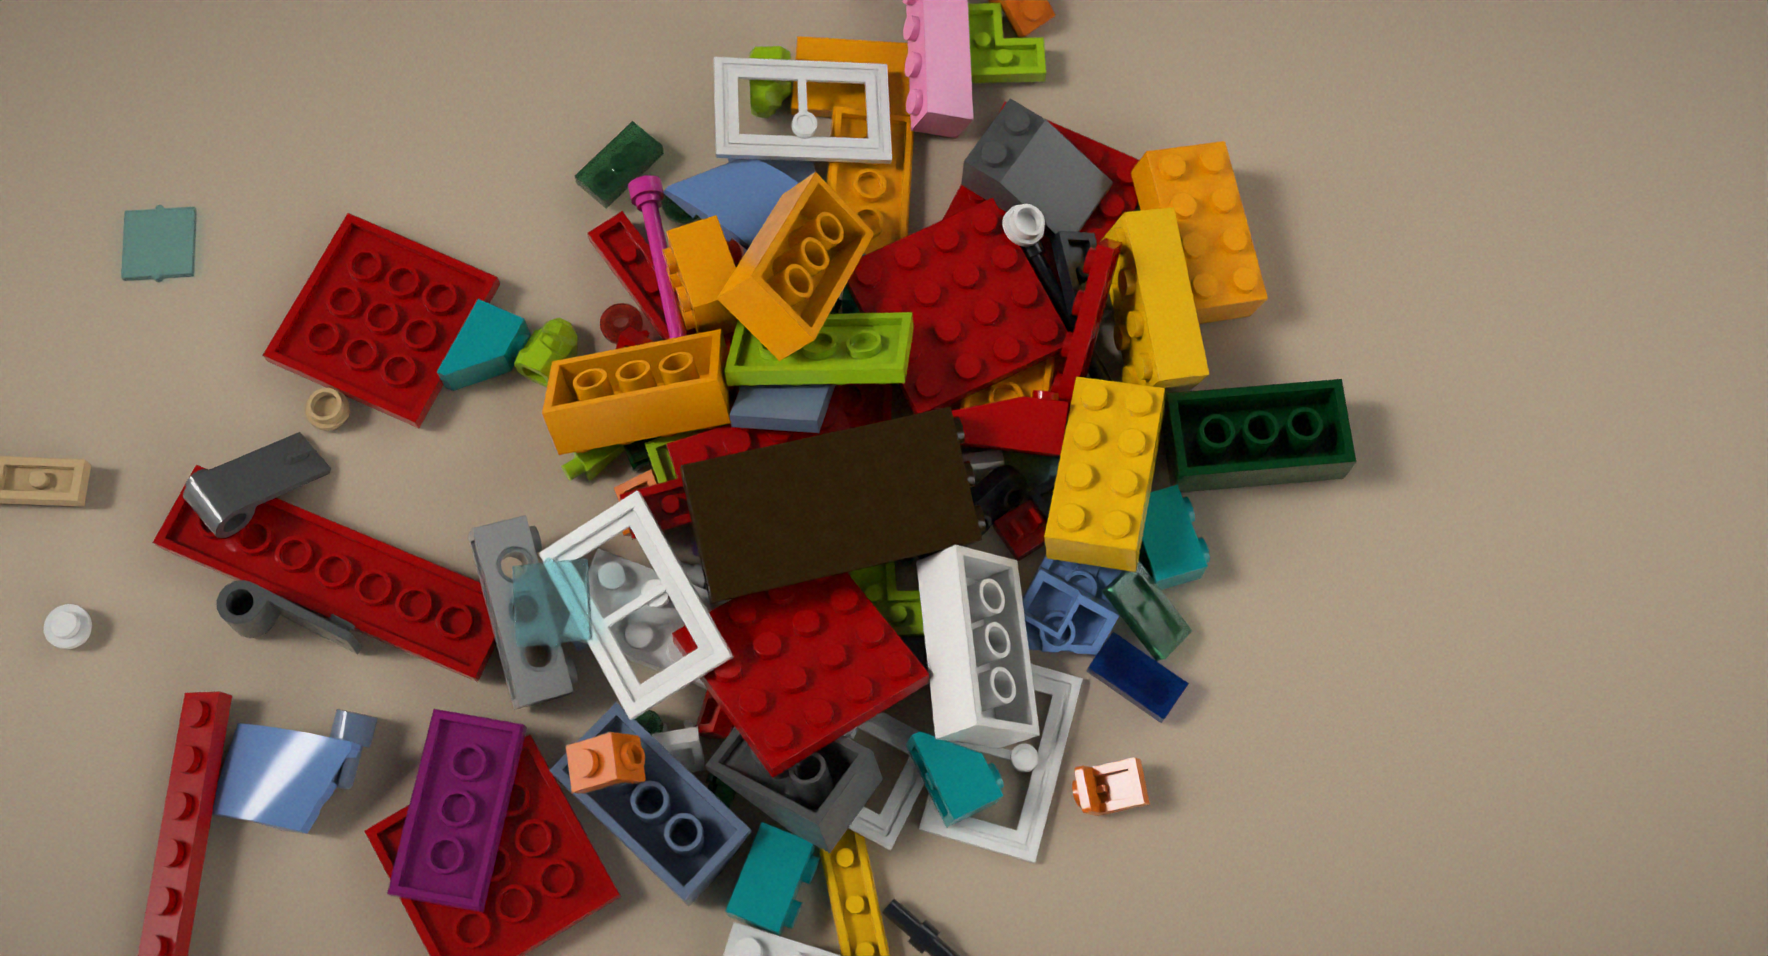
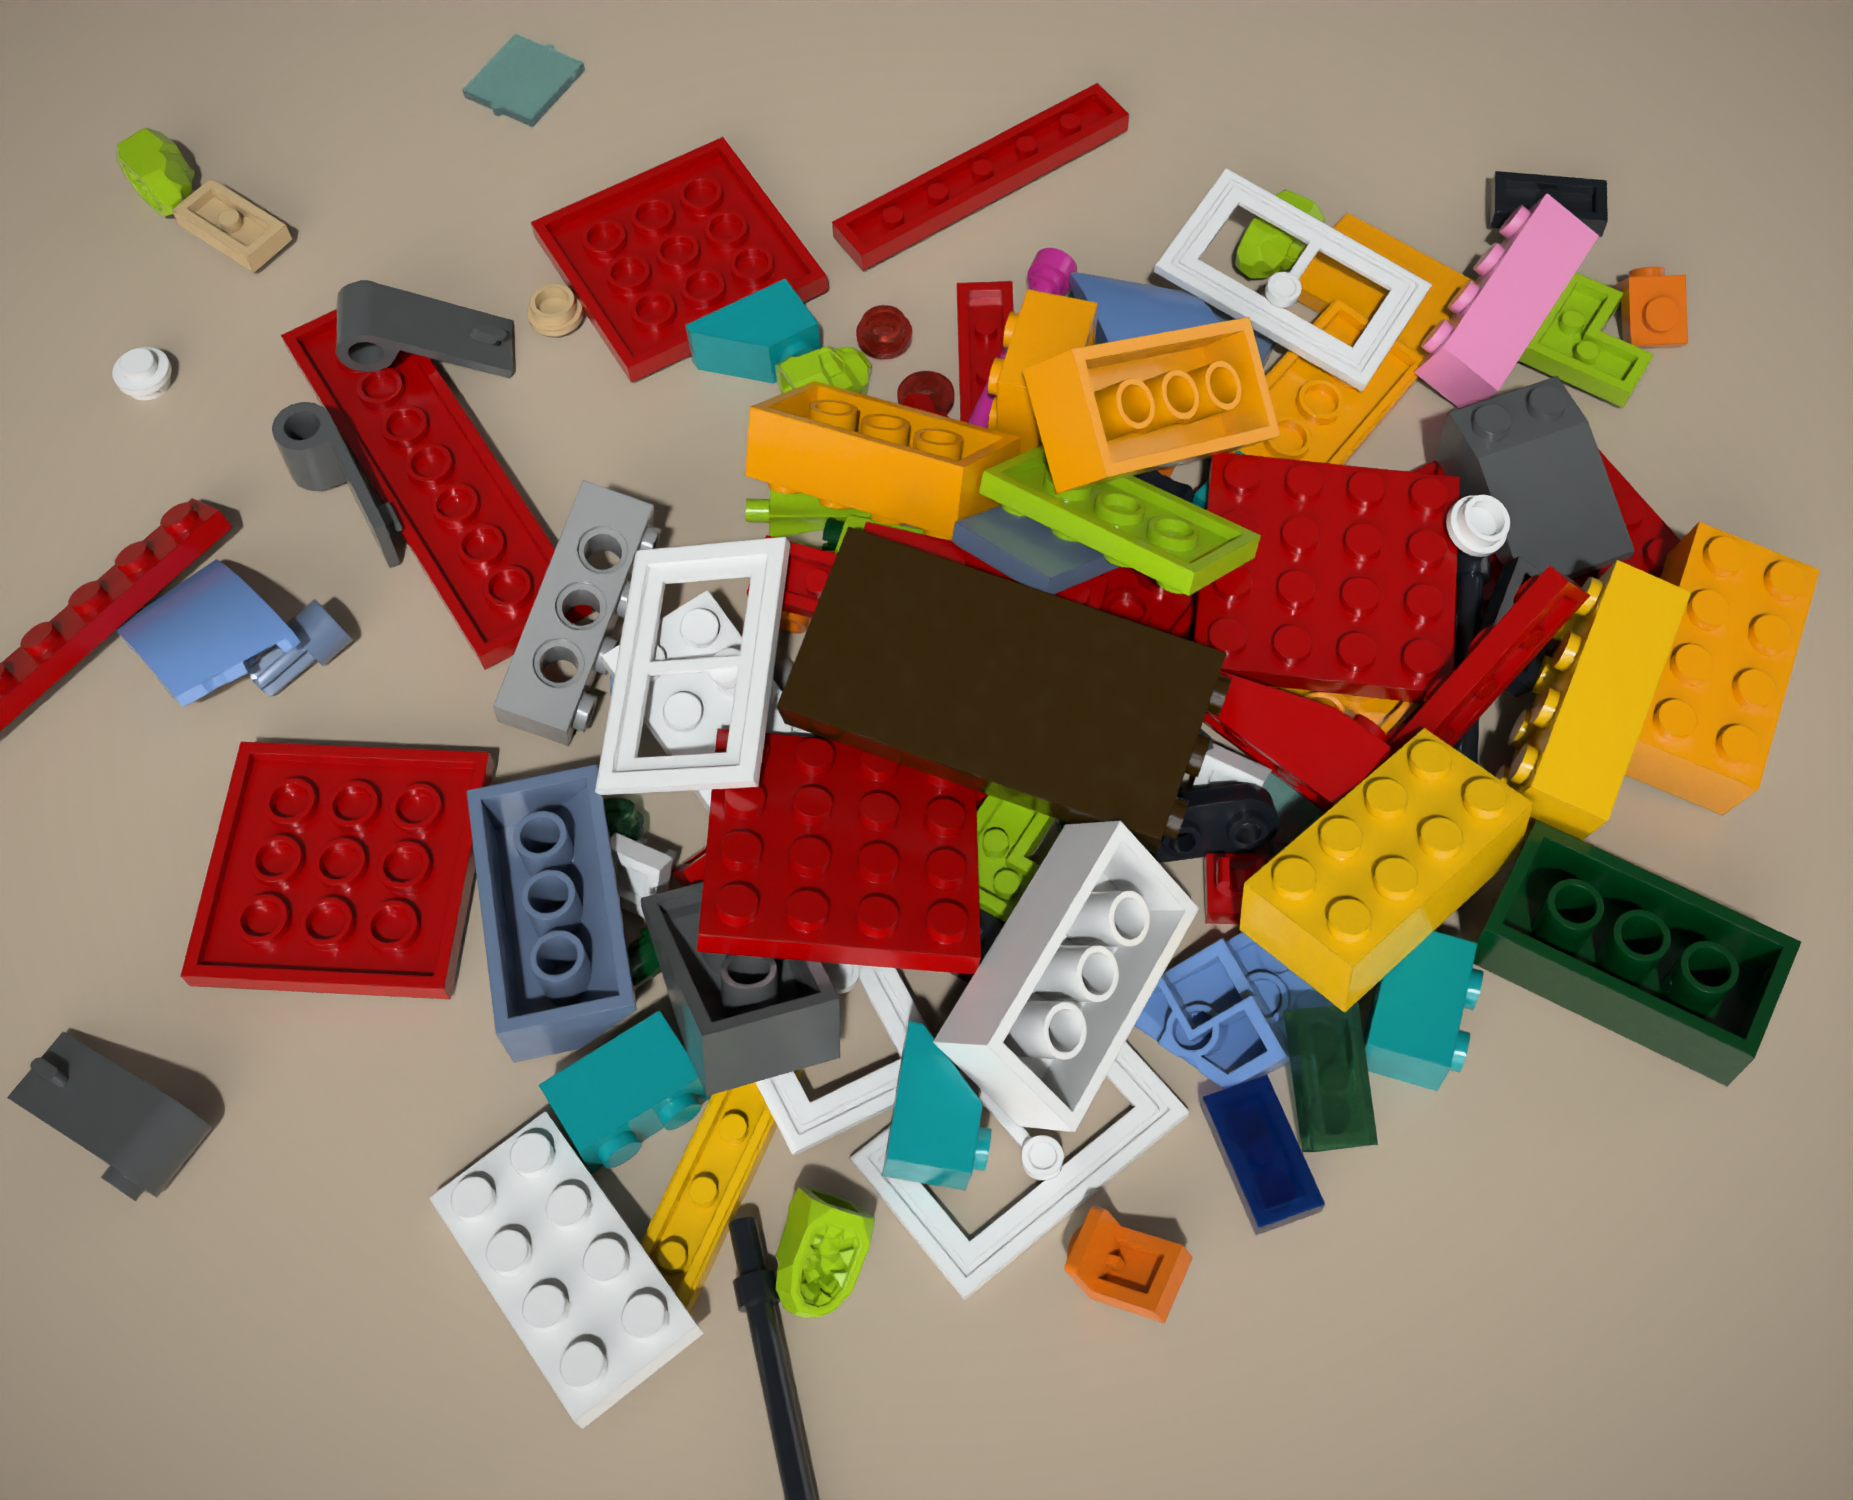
camera: 40 degrees right, 10 degrees down
(457, 810) = (346, 781): magenta tile -> none
(542, 142) = (979, 176): none -> red plate
(552, 602) = (607, 610): clear light blue piece -> none
(556, 285) = (884, 332): none -> clear red plate
(605, 762) = (531, 814): orange bracket -> none
(619, 164) = (1066, 228): clear green plate -> none
(946, 891) = (821, 1252): none -> lime rock

